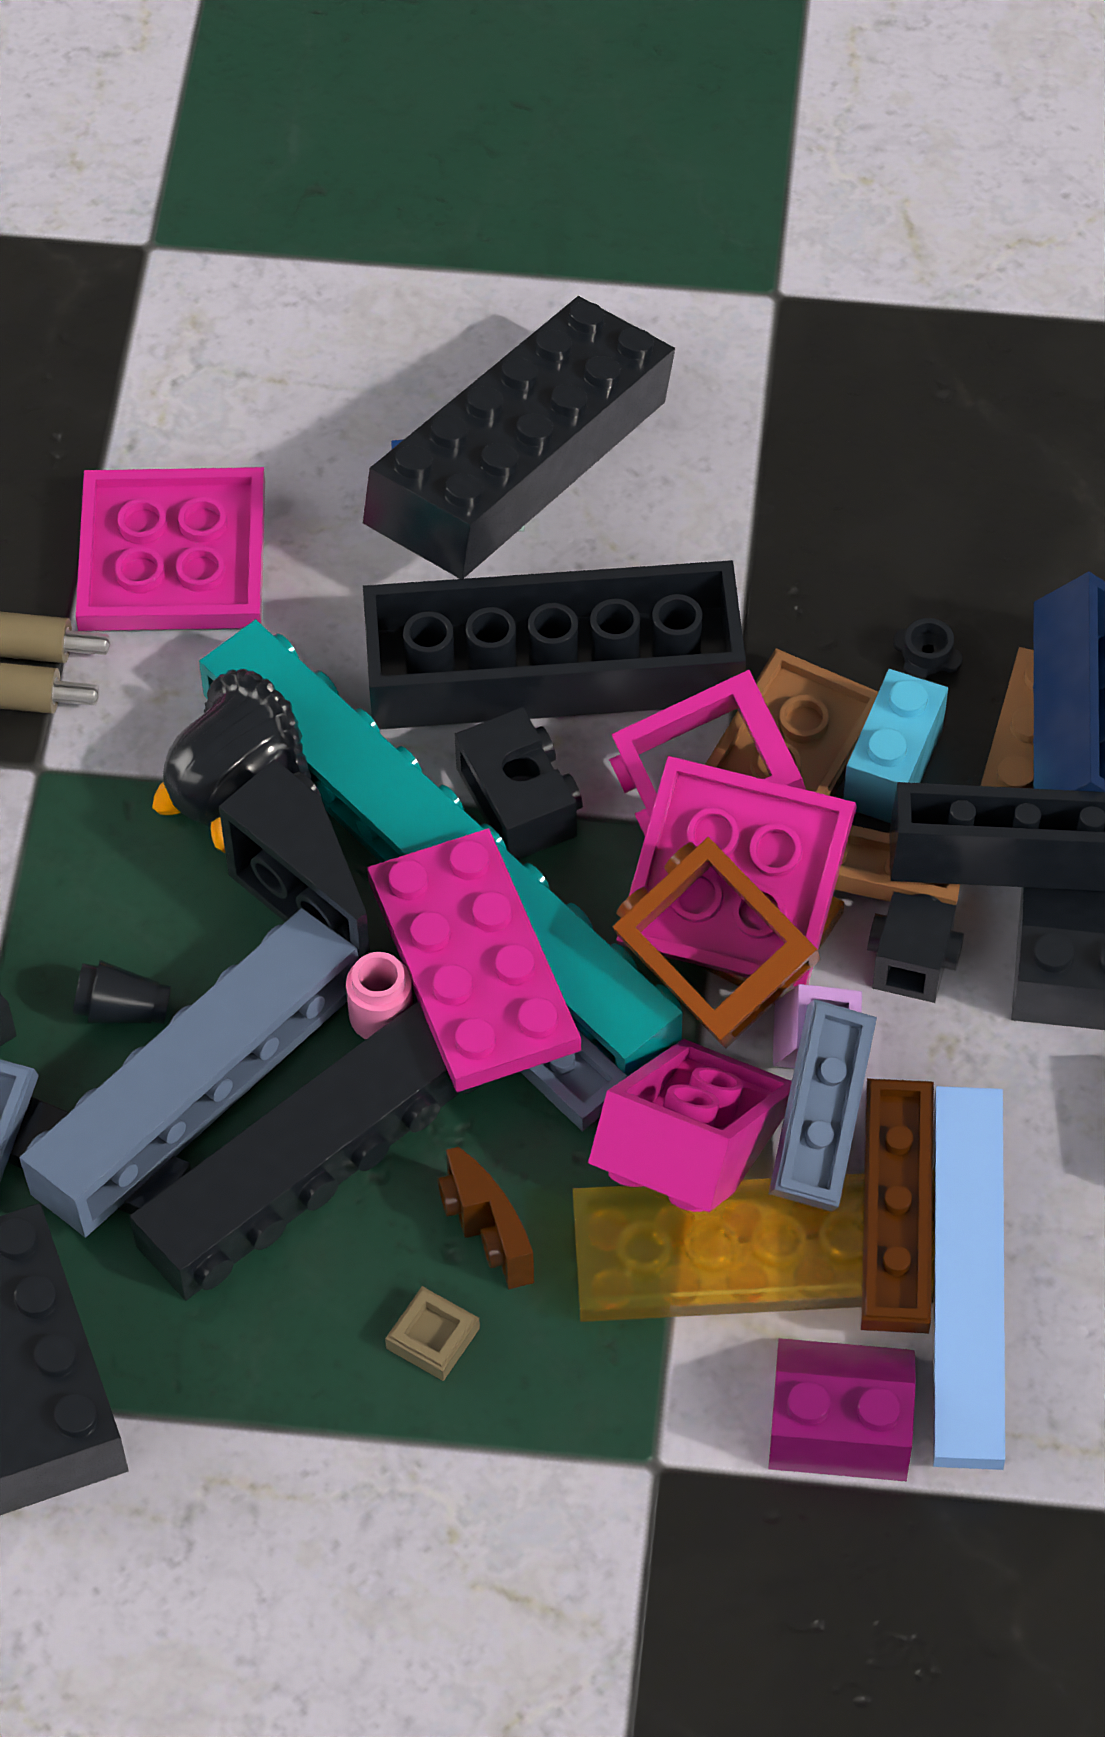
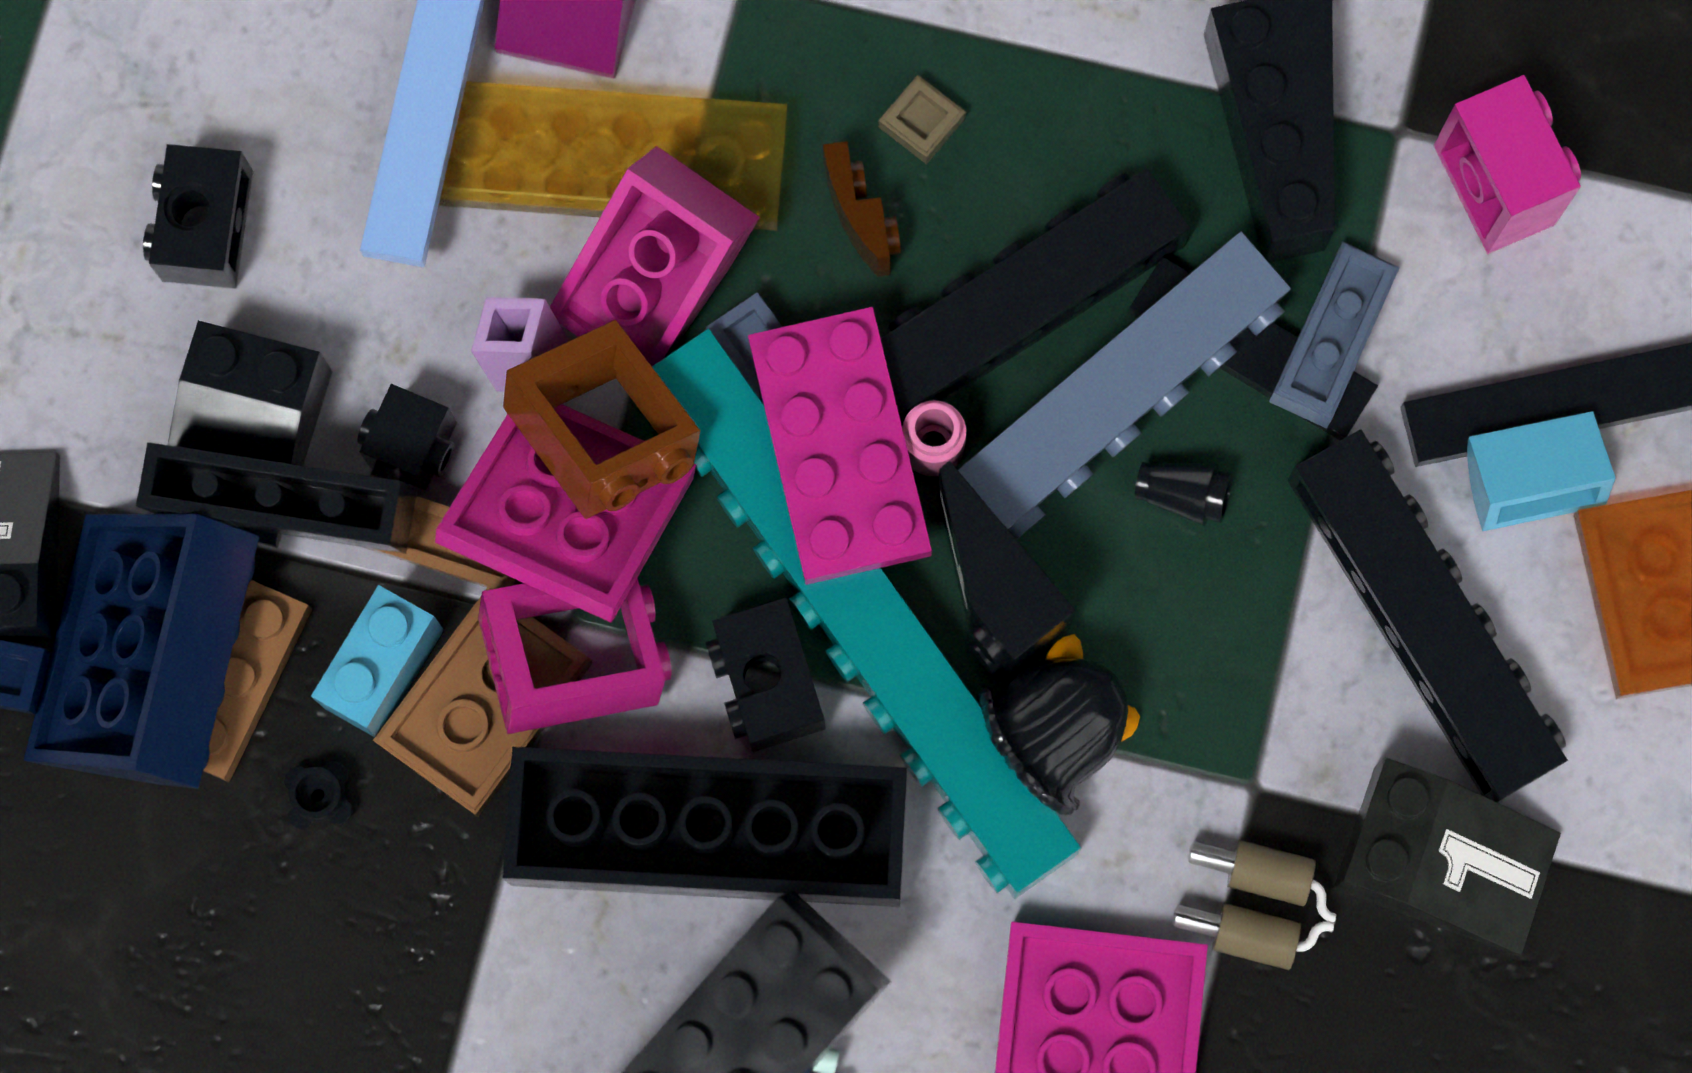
camera: 170 degrees left, 20 degrees up
(822, 1105) = (531, 245): sand blue tile -> none
(897, 1206) = (481, 160): reddish brown tile -> none

